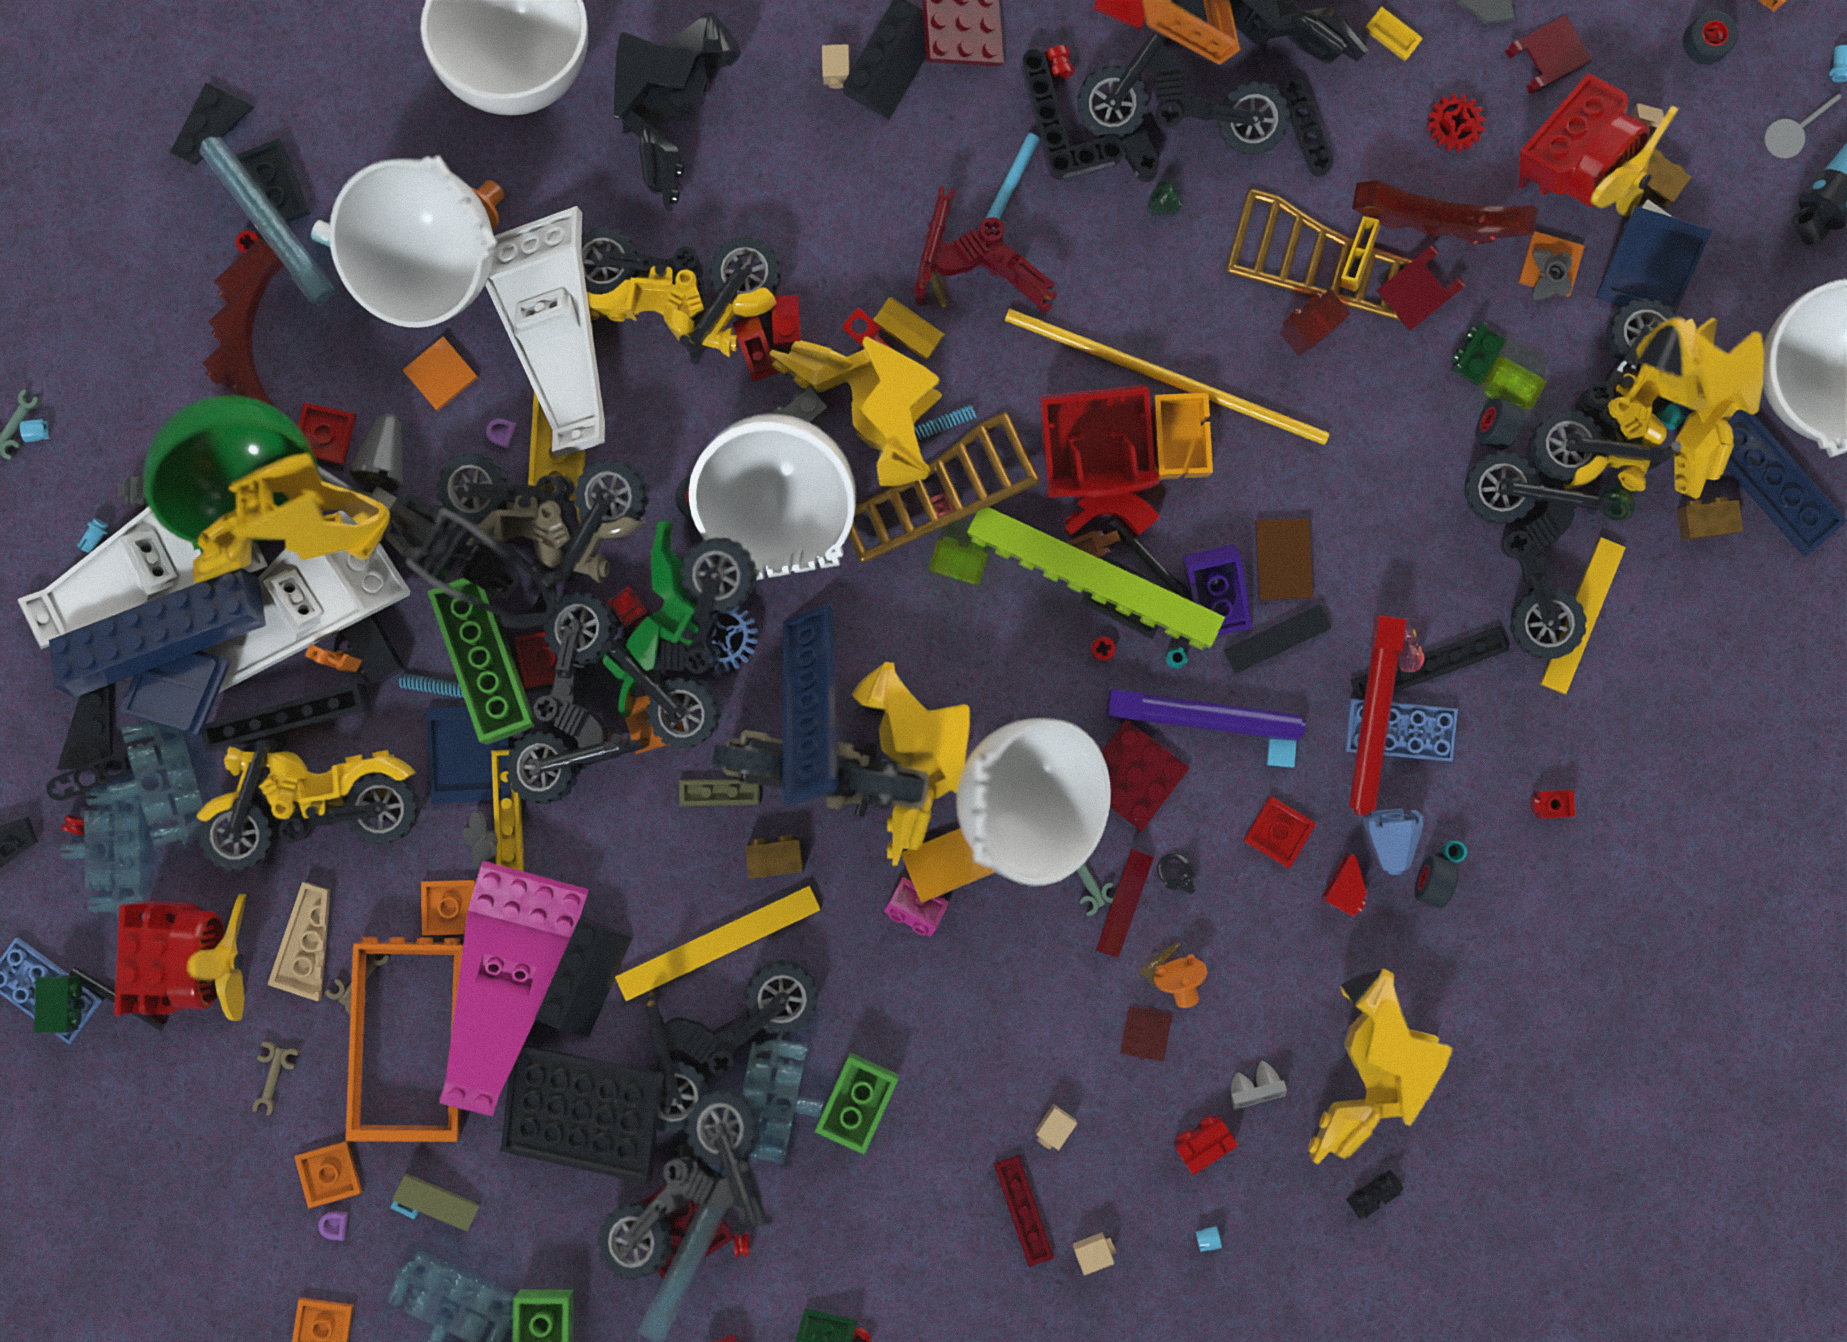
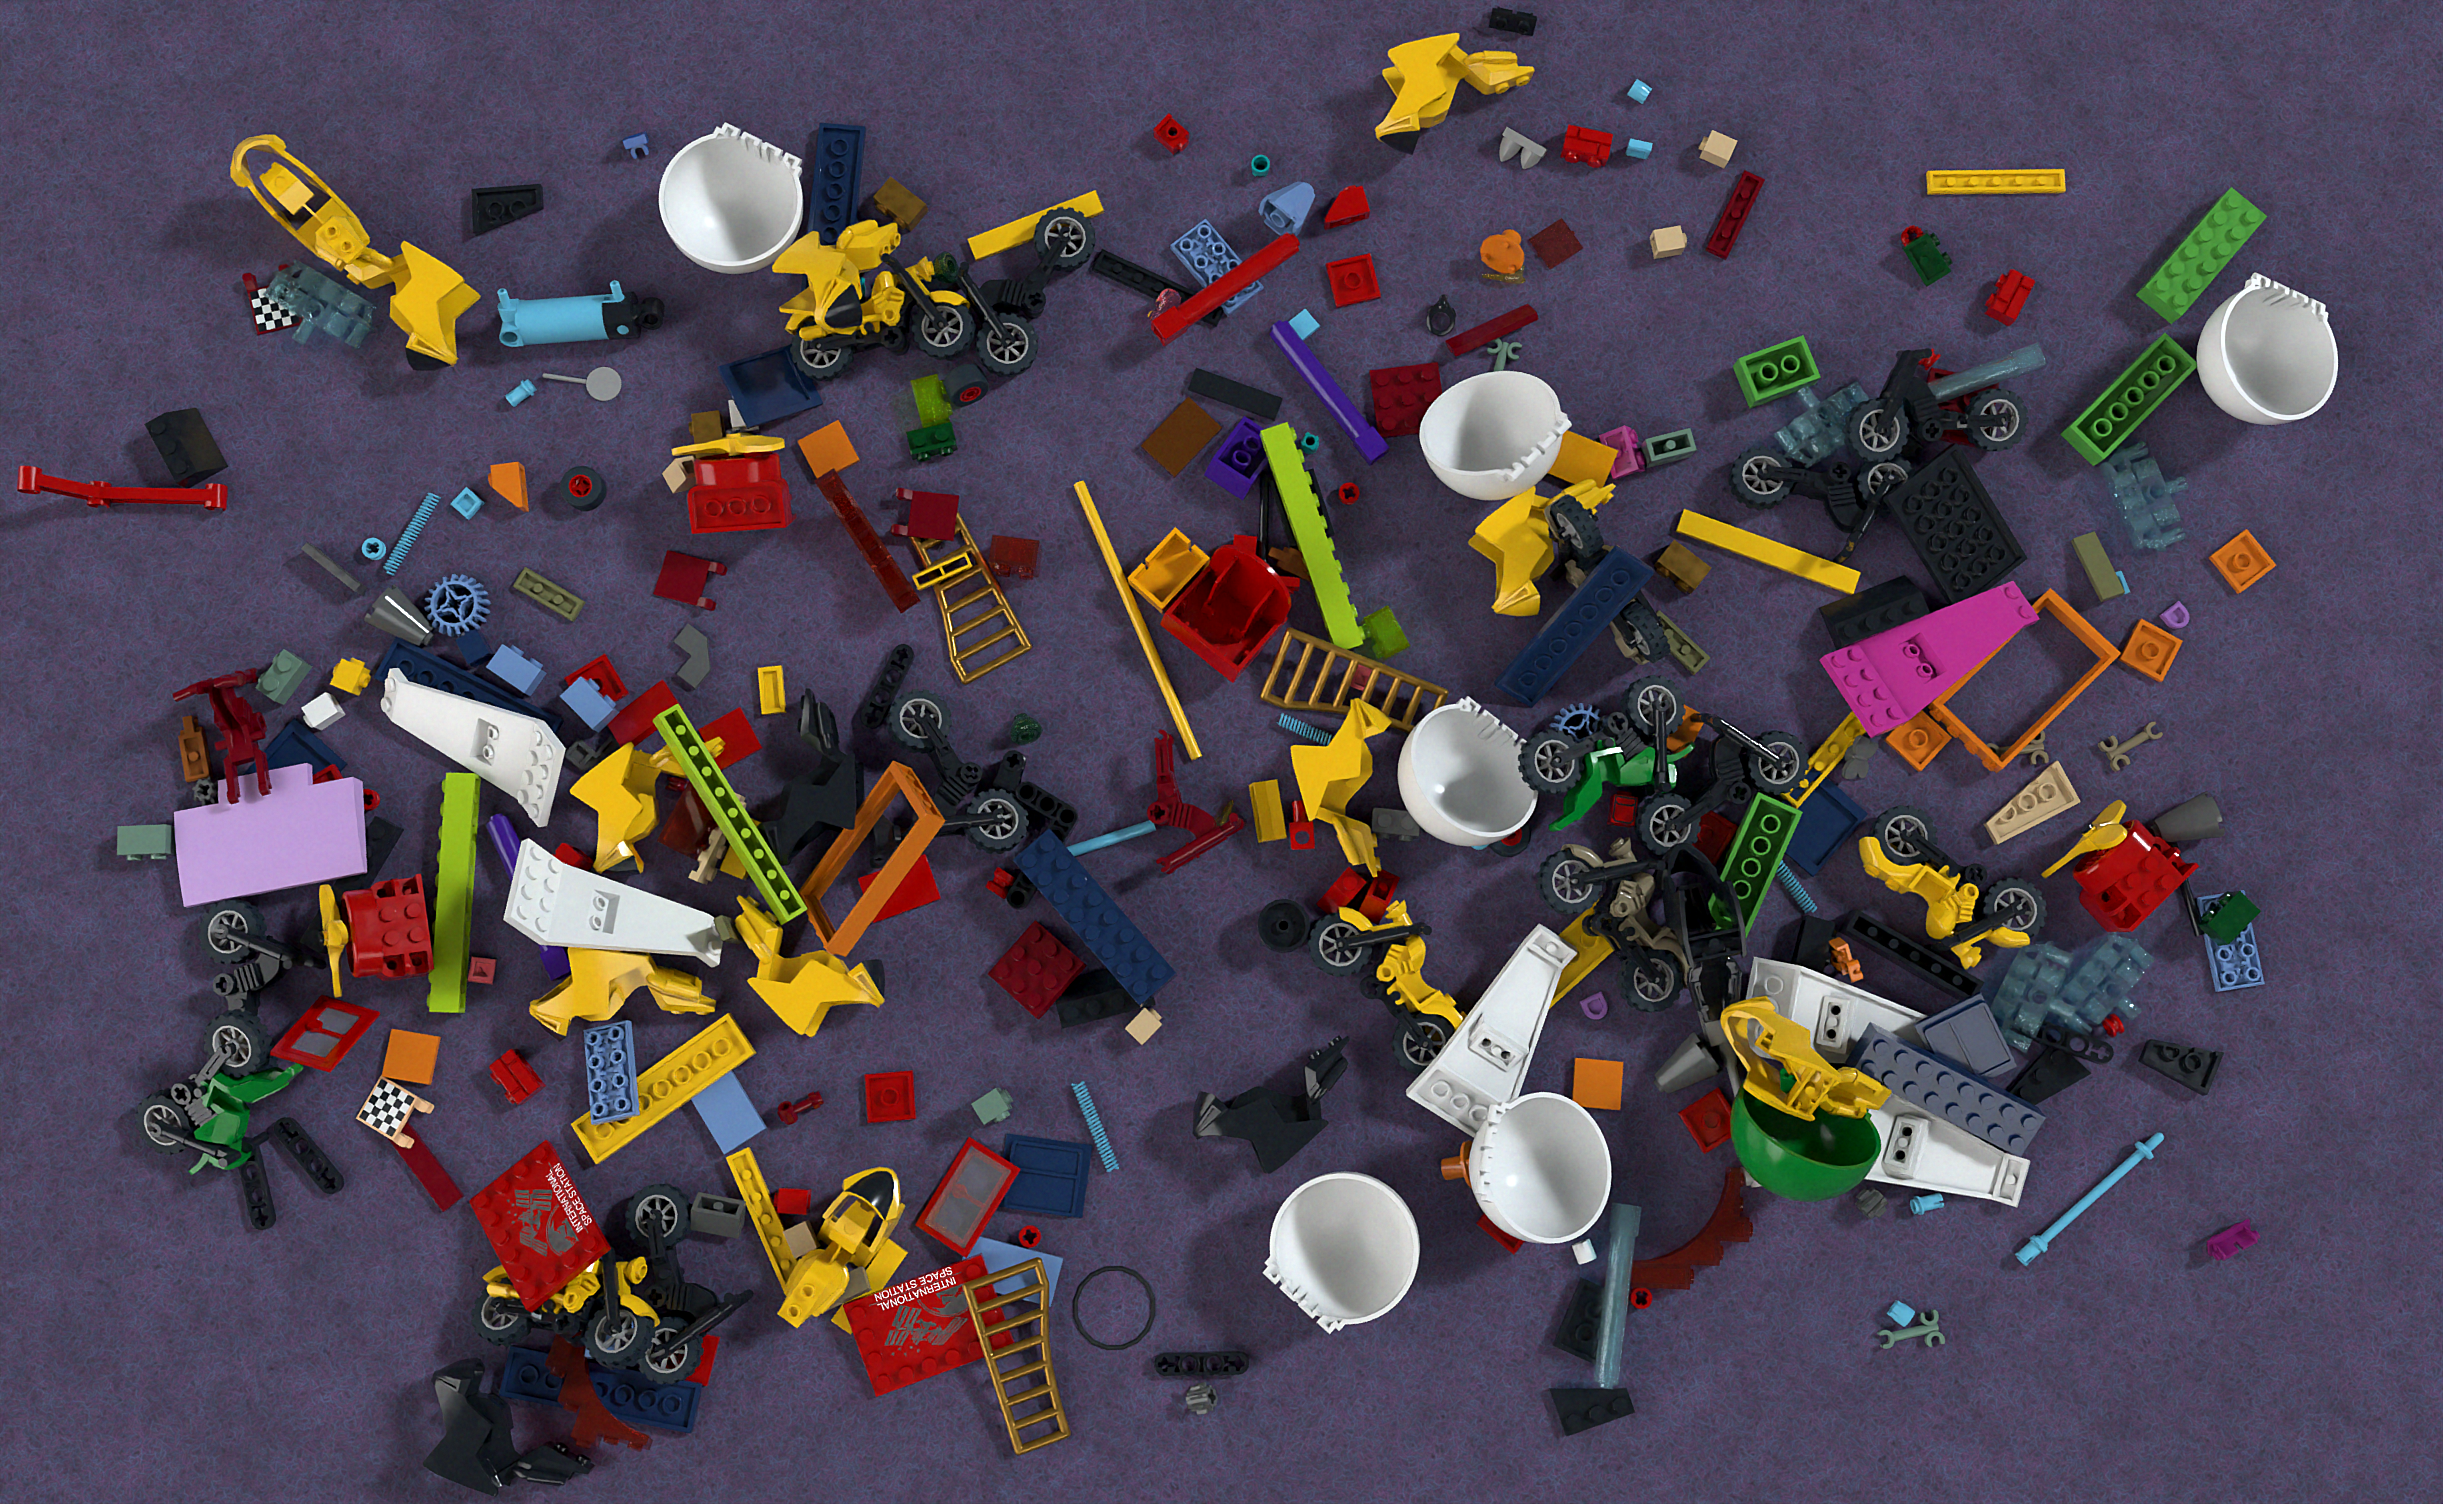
camera: 135 degrees left, 5 degrees down
(163, 1055) = (2190, 821): none -> dark grey cone
(790, 241) = (1297, 929): none -> black wheel
(882, 946) = (1668, 448): none -> sand green brick
(957, 97) = (1095, 917): none -> dark blue brick
(1159, 1185) = (1638, 149): none -> medium azure tile
(1436, 881) = (1291, 157): black wheel -> none
(1467, 120) = (786, 597): red gear -> none
(1553, 274) = (836, 441): dark grey animal -> none

